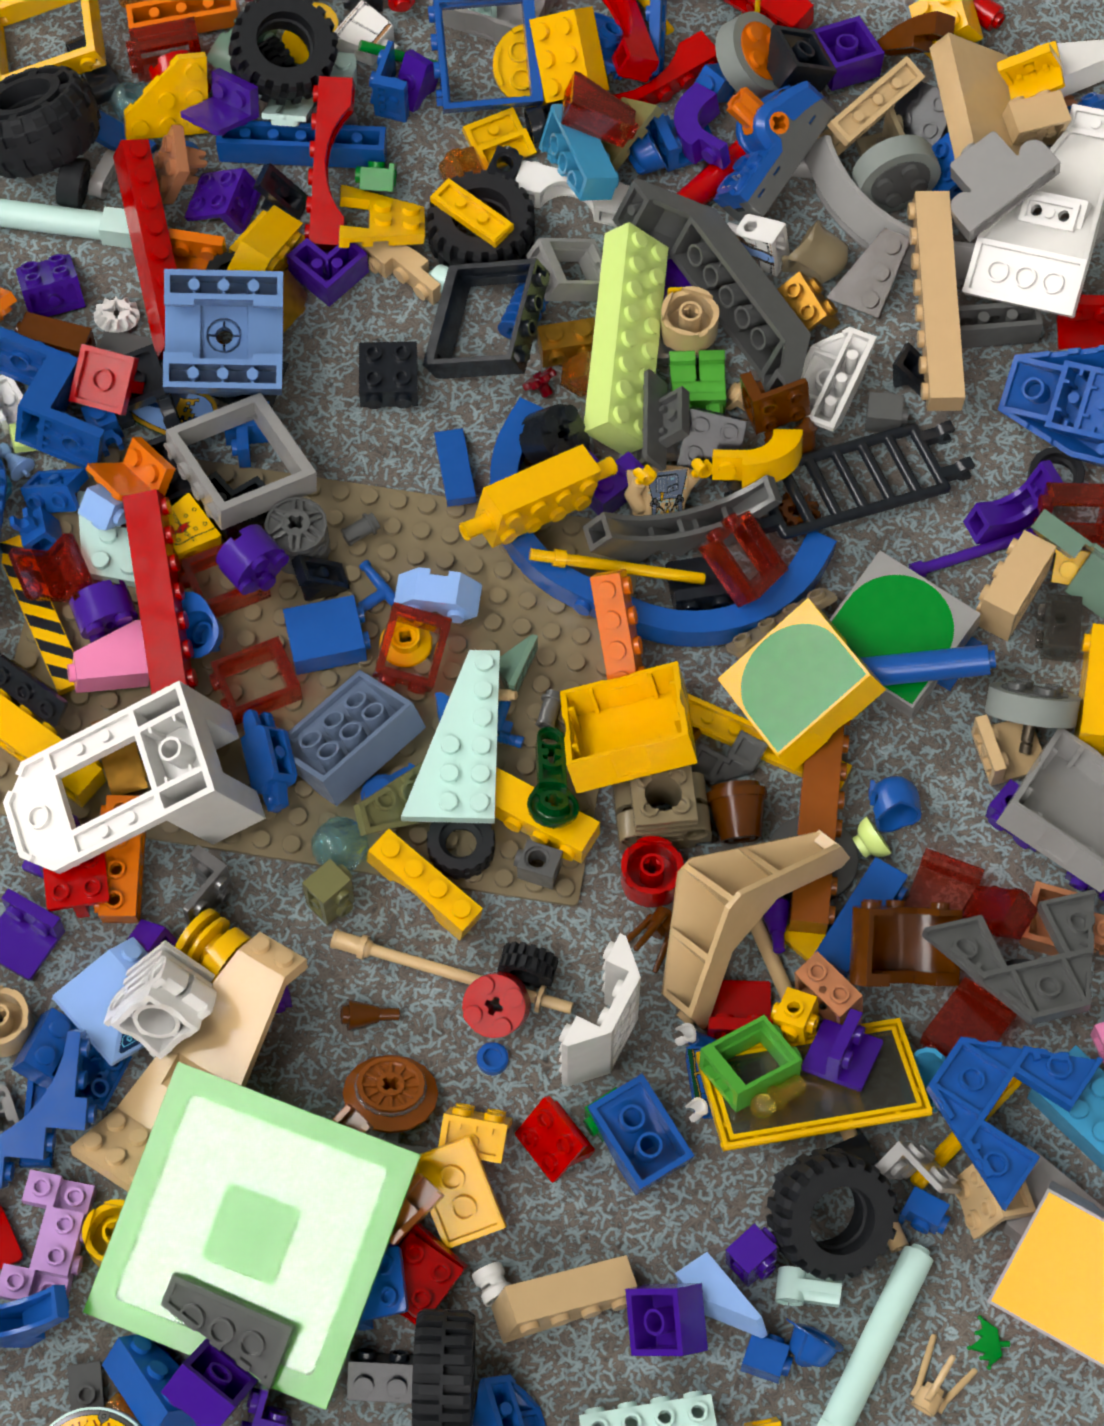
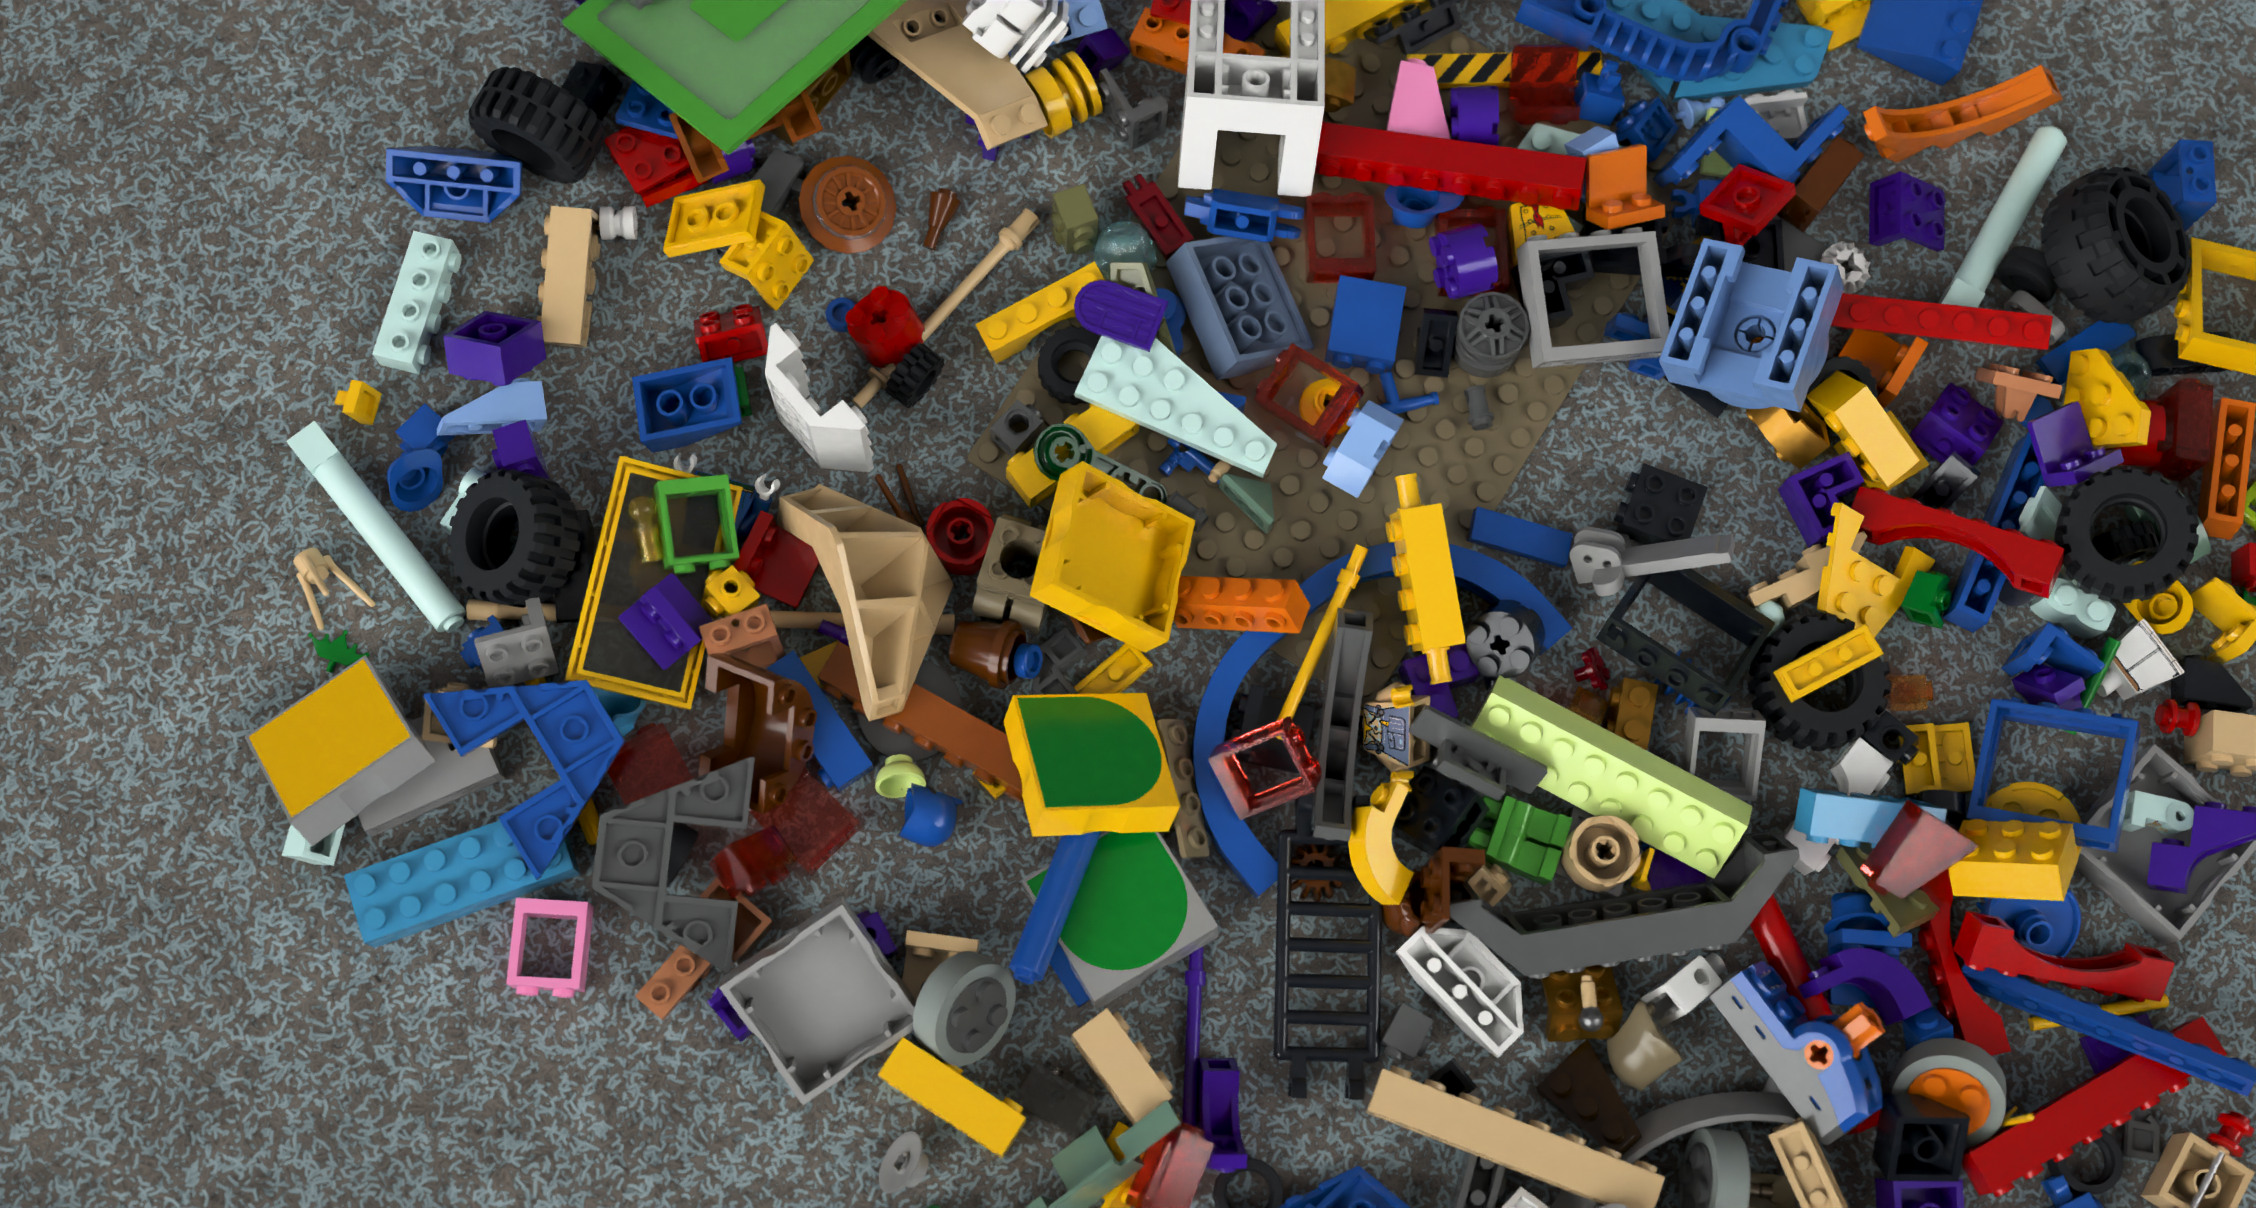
camera: 105 degrees right, 10 degrees up
(295, 831) = (1156, 216): none -> dark red hinge
(409, 808) = (1120, 313): none -> dark purple window
(452, 389) = (1614, 558): none -> light grey piece
(732, 775) = (1027, 660): none -> blue tile
(817, 286) = (1590, 1016): none -> piece

